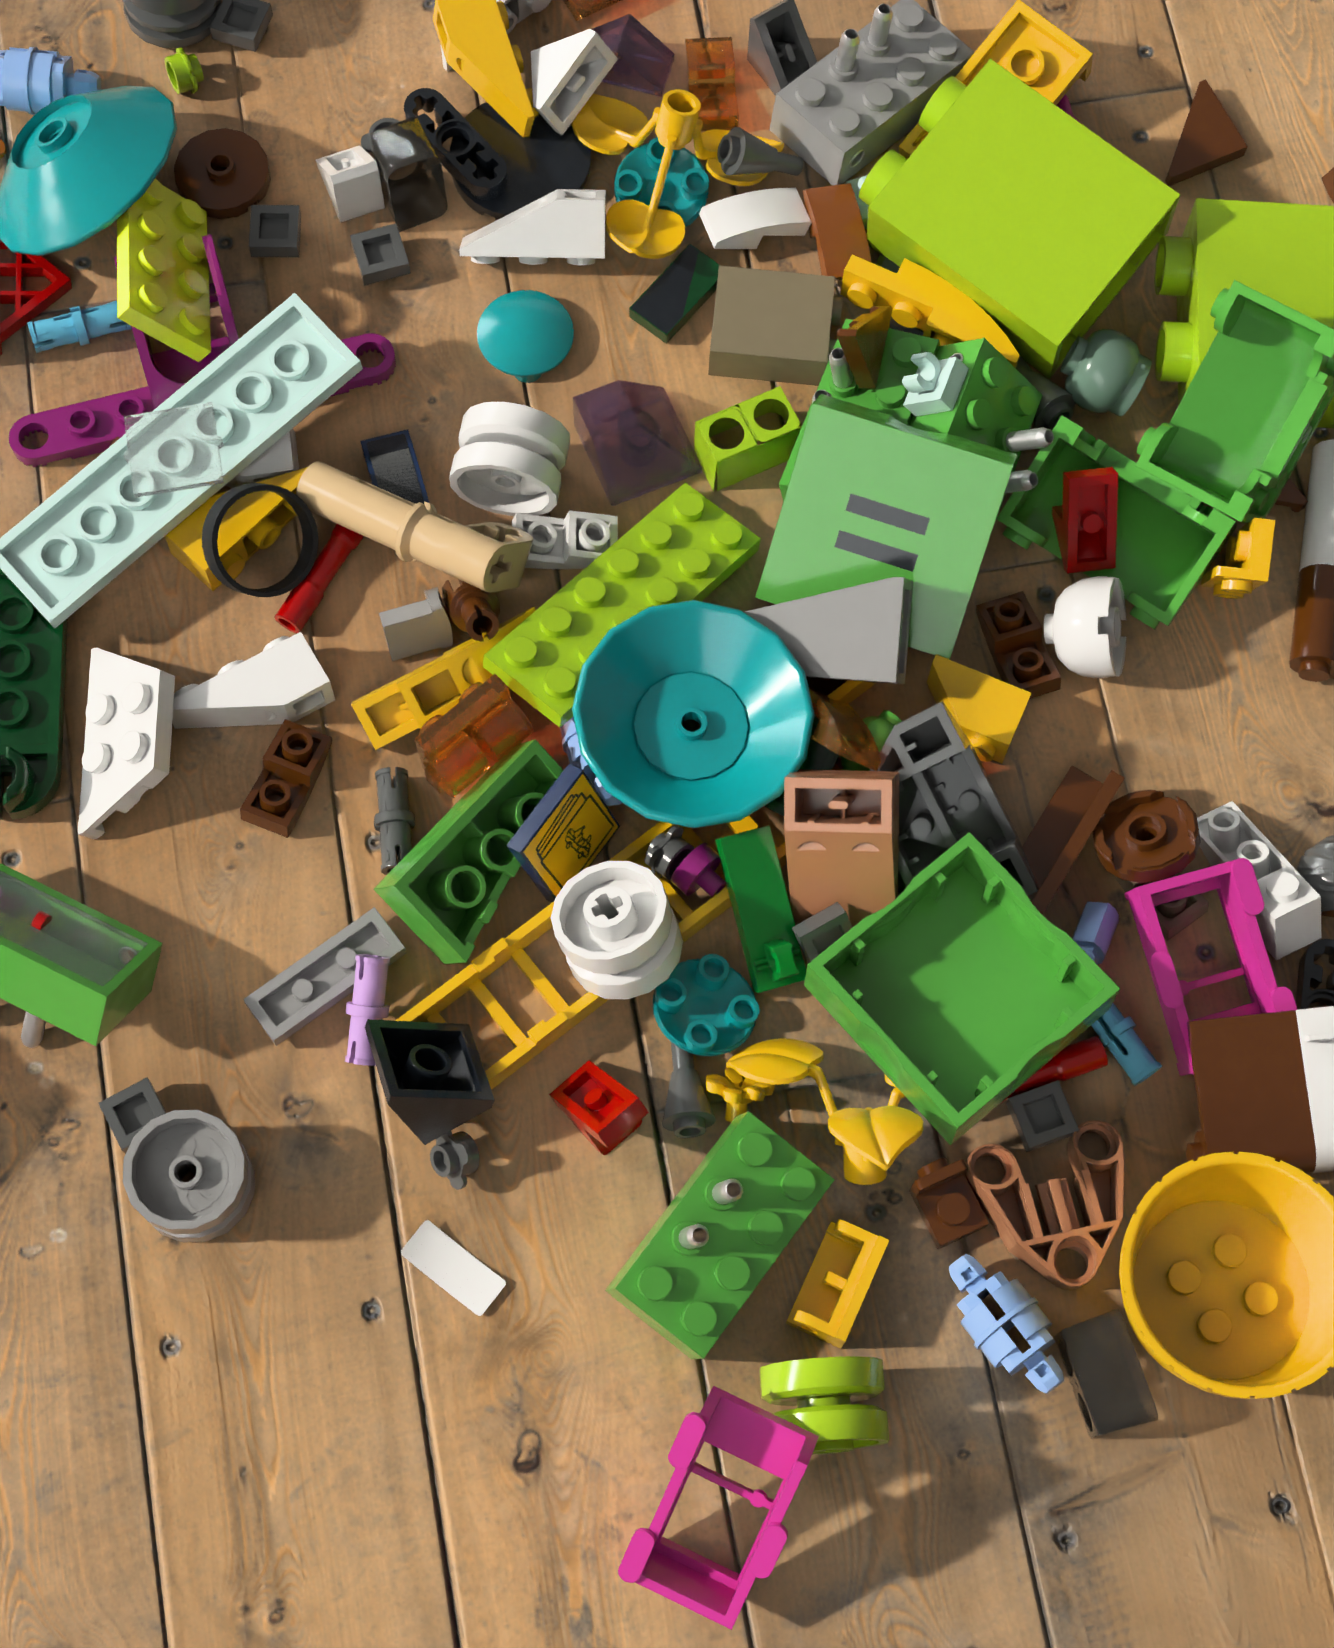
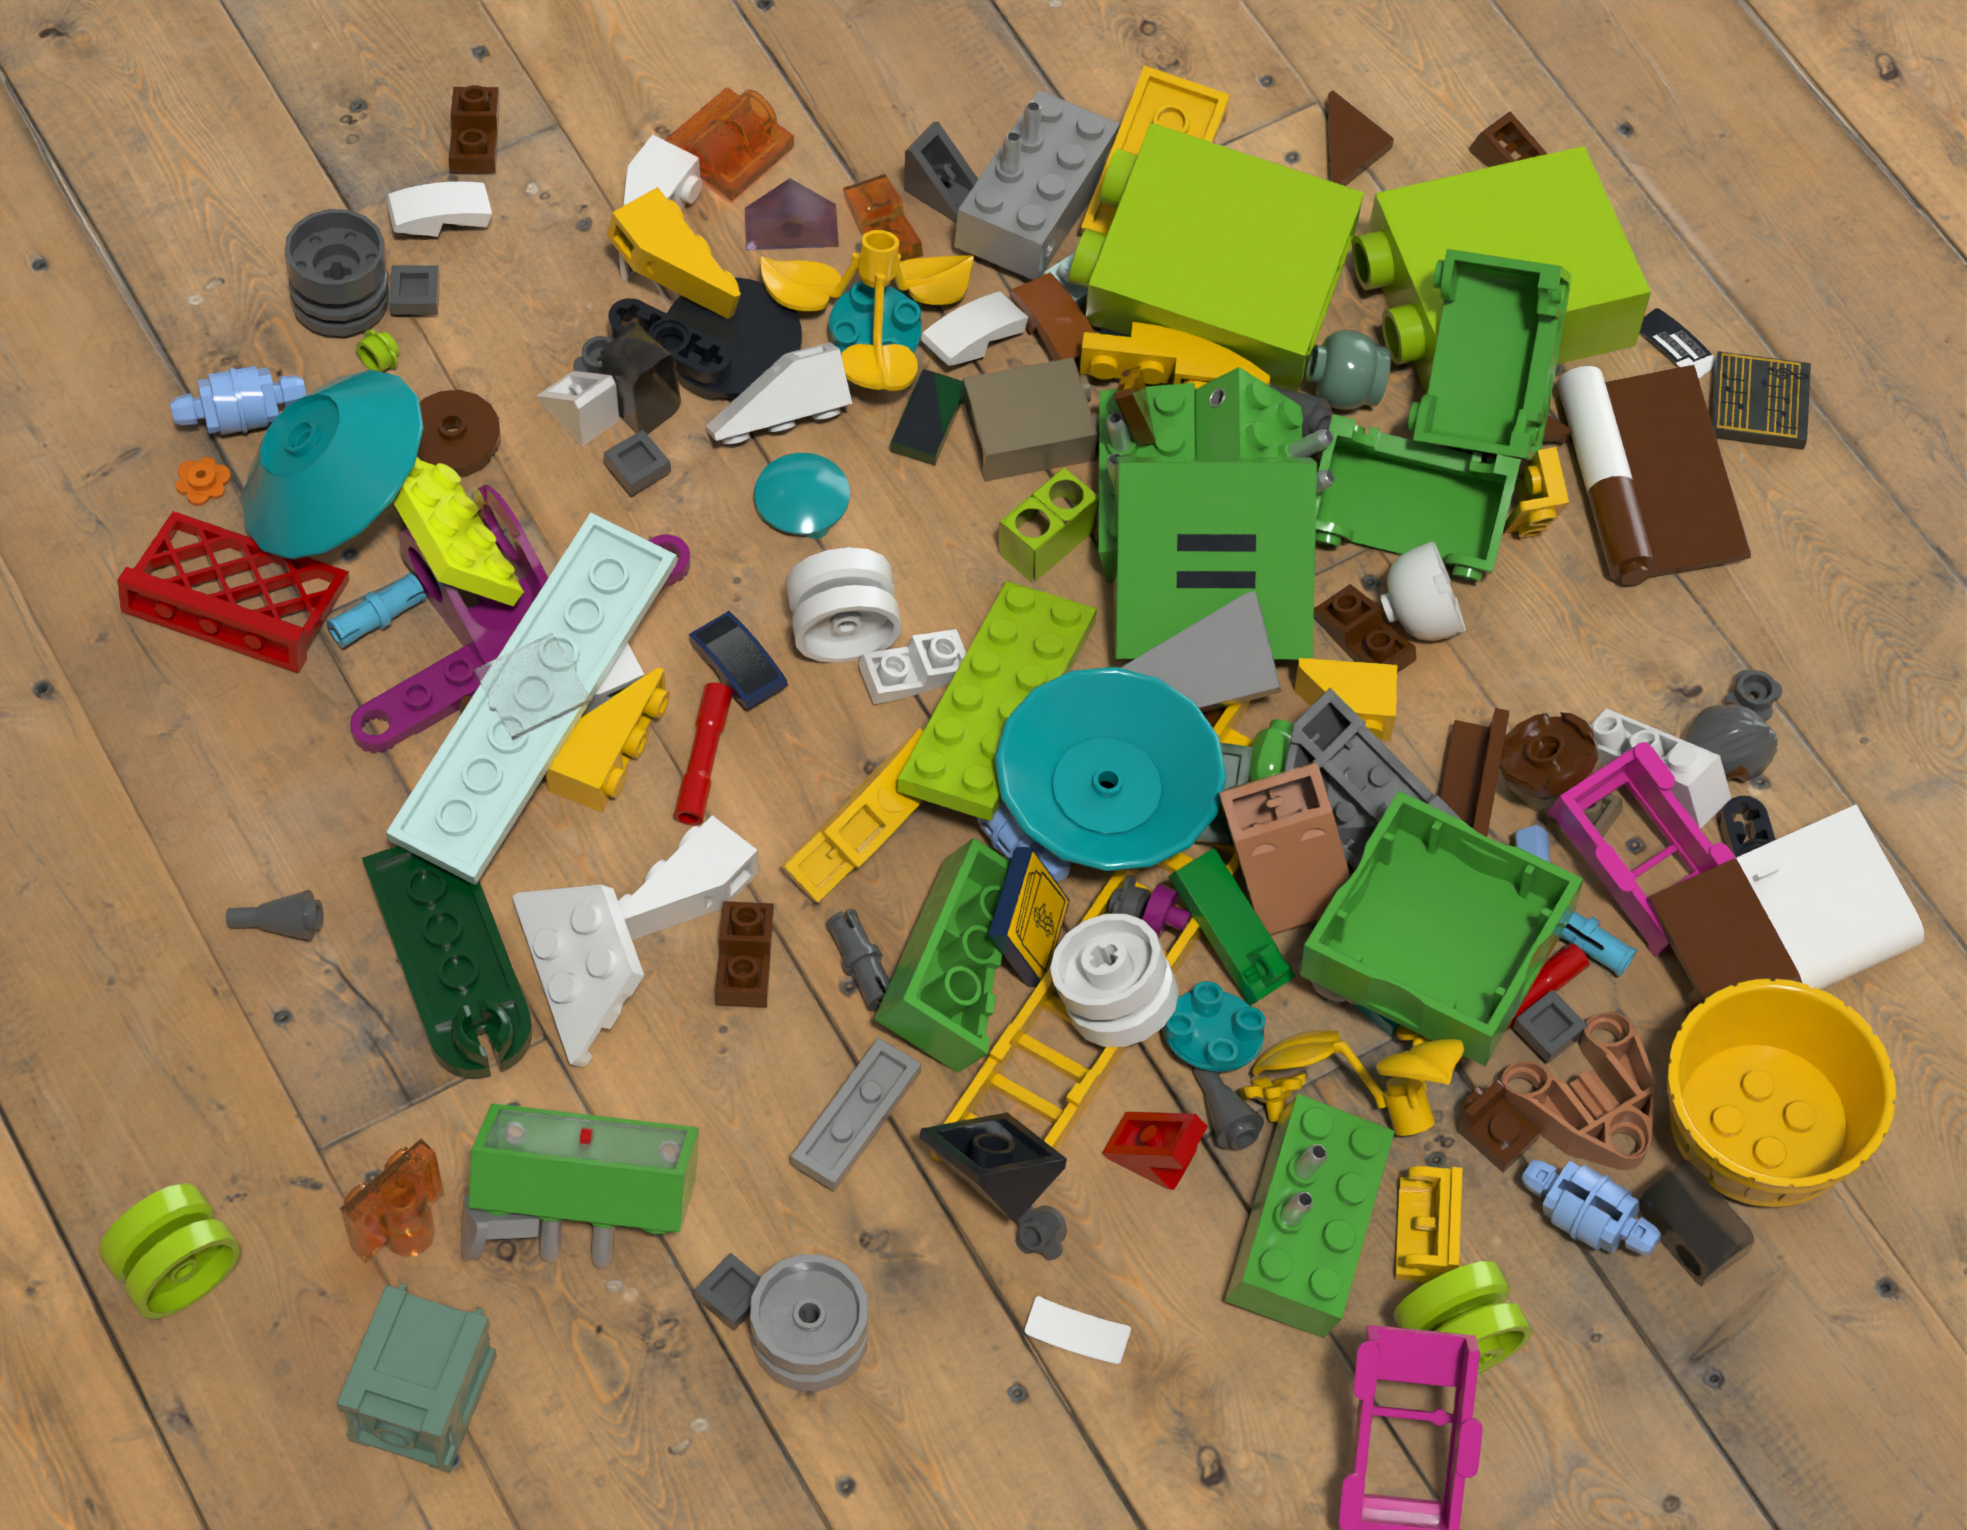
camera: 20 degrees left, 10 degrees down
(275, 231) = (528, 470): dark grey plate -> none
(309, 540) = (681, 734): black tyre -> none
(366, 1004) = (908, 1121): lavender pin -> none
(417, 627) = (813, 781): light grey tile -> none
(472, 609) = (860, 745): reddish brown arm -> none
(479, 726) = (911, 858): clear orange plate -> none
(480, 554) = (845, 694): tan piece -> none
(568, 75) = (754, 249): white slope -> none
(633, 439) = (942, 558): slope -> none
(746, 154) = (946, 272): dark grey cone -> none
(821, 930) = (1294, 929): dark grey plate -> none
(843, 731) = (1251, 748): clear orange slope -> none
(934, 384) = (1209, 421): light aqua tile -> none
(1088, 520) = (1385, 502): red slope -> none

